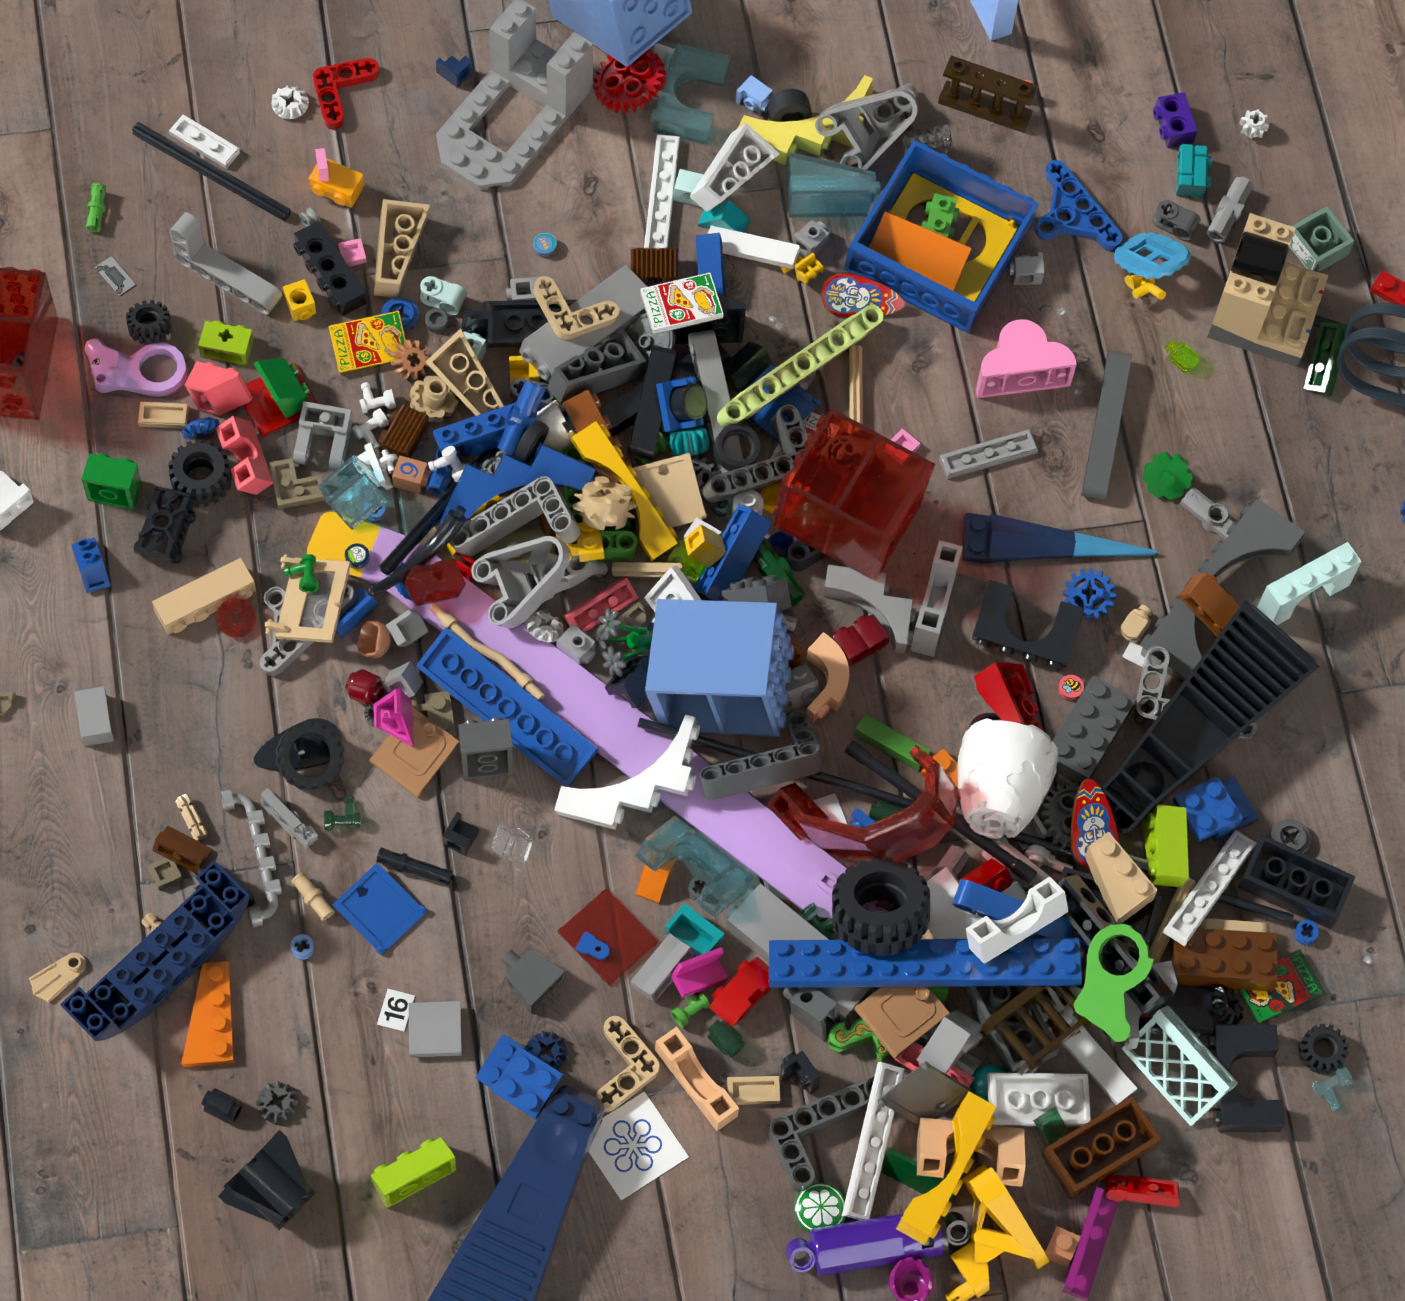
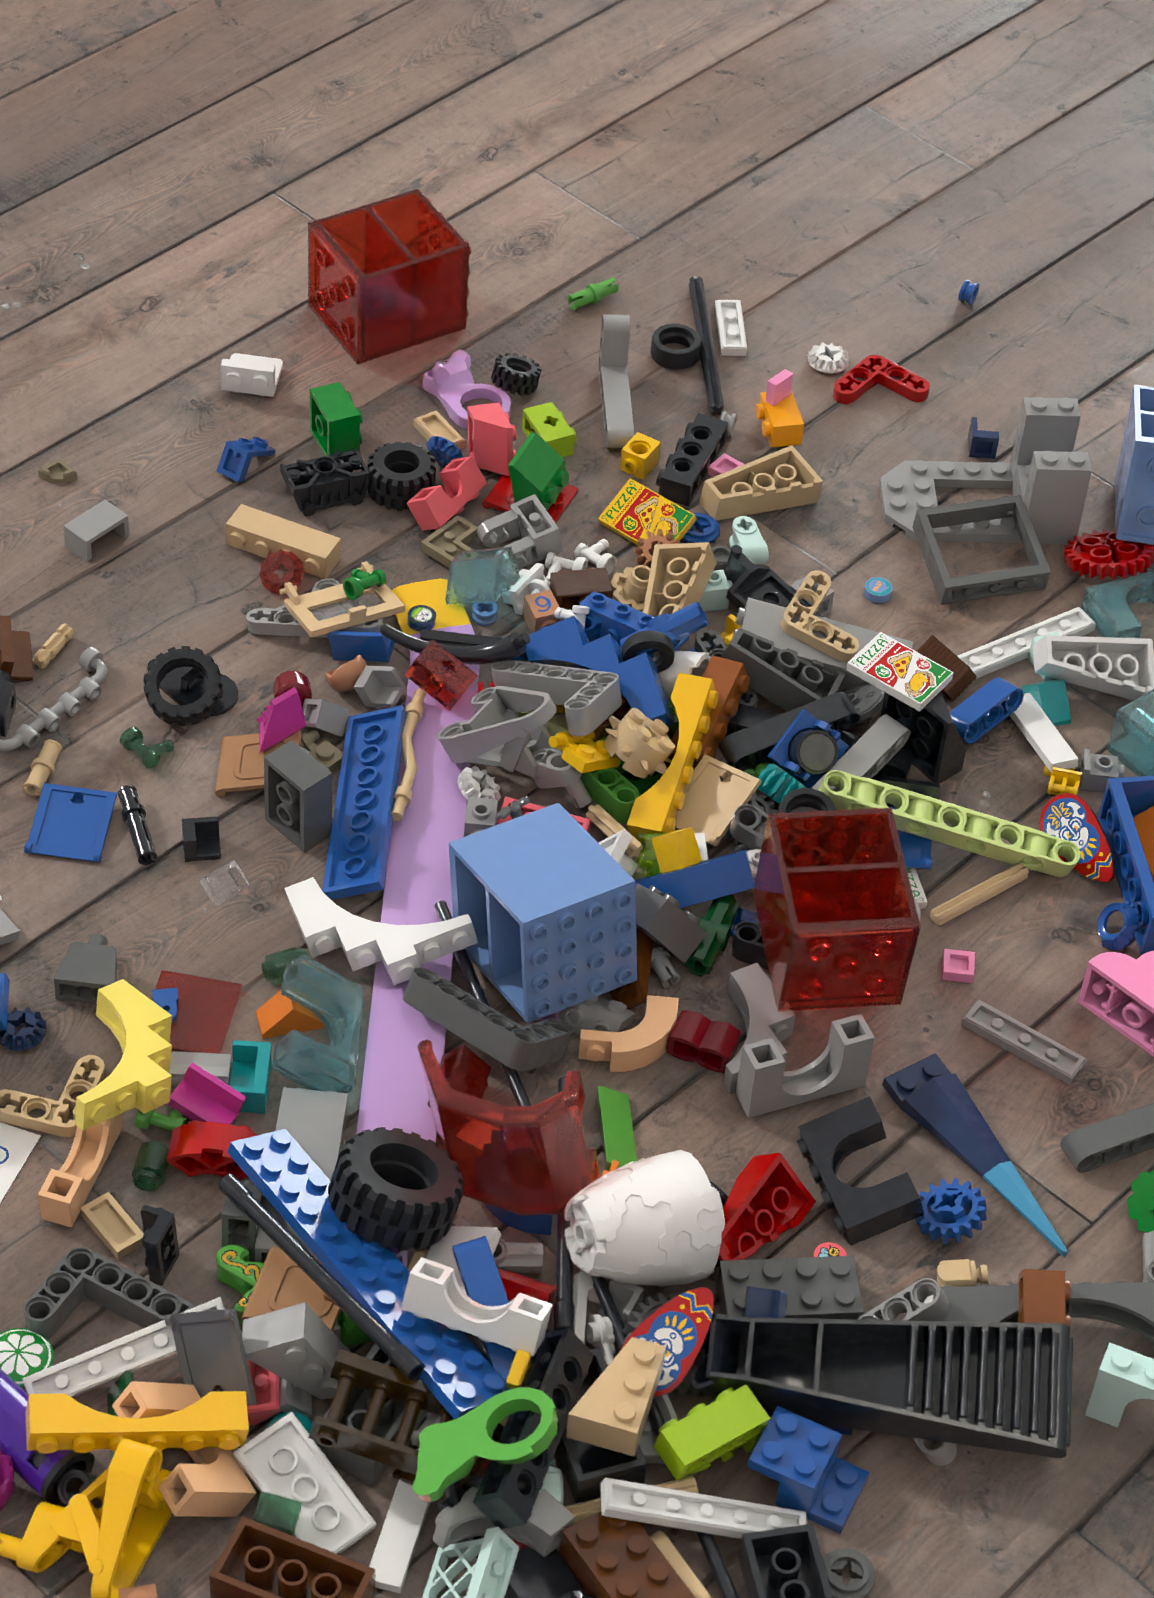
camera: 55 degrees right, 20 degrees down
(115, 275) = (543, 340): sticker -> none
(200, 178) = (673, 358): none -> black tyre
(287, 819) = (107, 708): light grey hinge -> none
(548, 188) = (984, 584): none -> dark grey window
(614, 851) = (275, 963): none -> clear green brick
(614, 977) = (142, 1073): none -> light yellow arch
(951, 339) = (1131, 919): none -> blue piece
(1012, 986) = (398, 1353): none -> black piece
(1068, 926) = (518, 1369): none -> yellow tile
(1105, 753) = (764, 1303): none -> dark blue panel

